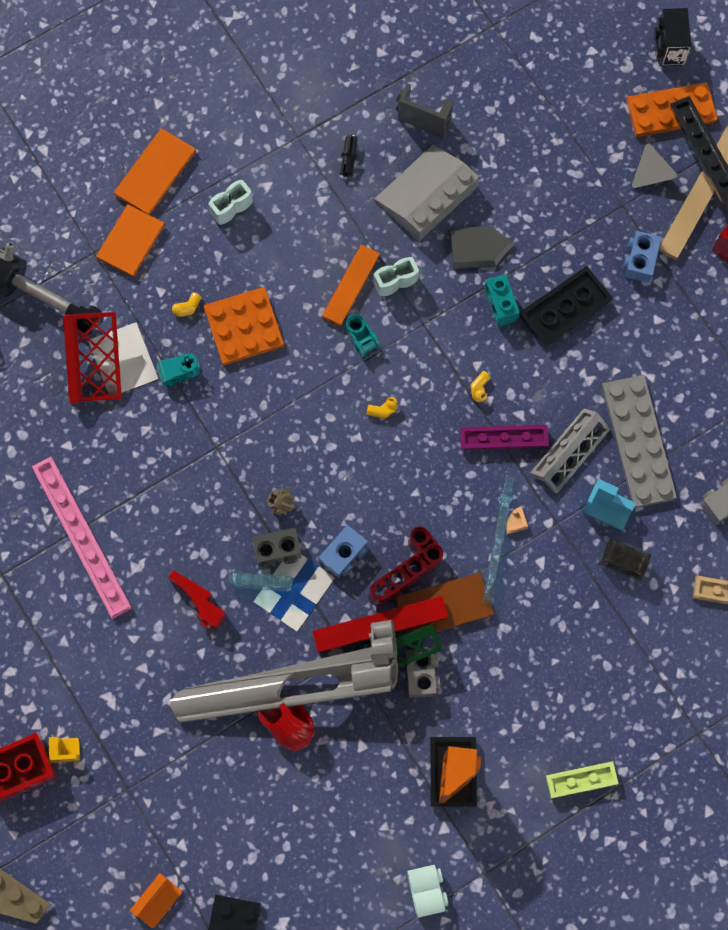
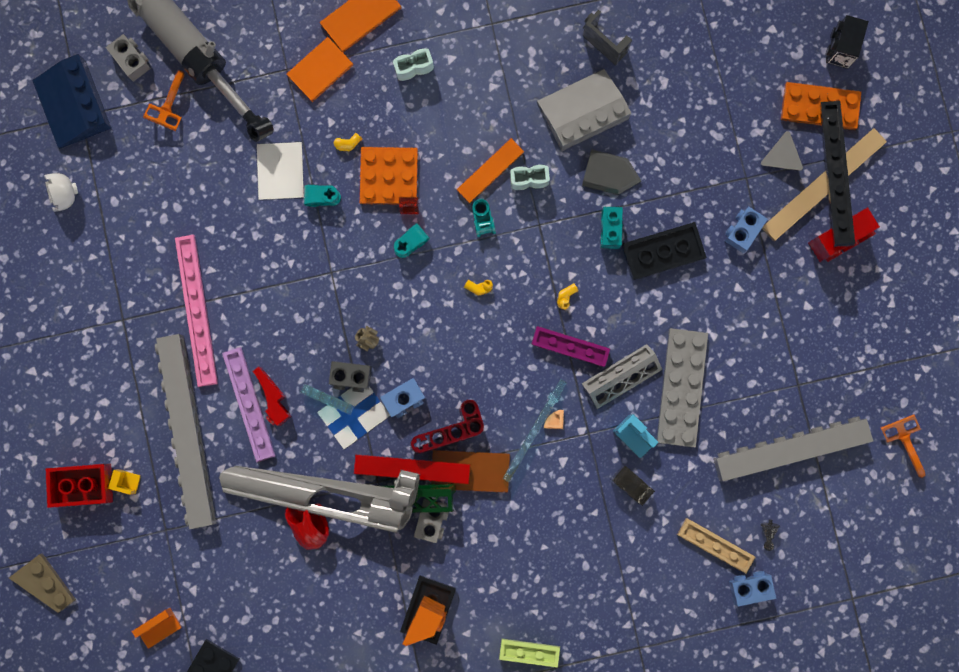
camera: 25 degrees right, 10 degrees up
(72, 357) = (234, 161): red fence -> none
(116, 671) = (186, 431): none -> light grey brick
(175, 618) = (249, 404): none -> lavender tile
(277, 348) = (408, 205): none -> clear red tile
(294, 383) = (413, 239): none -> teal piece
(349, 155) = (528, 55): black axle -> none

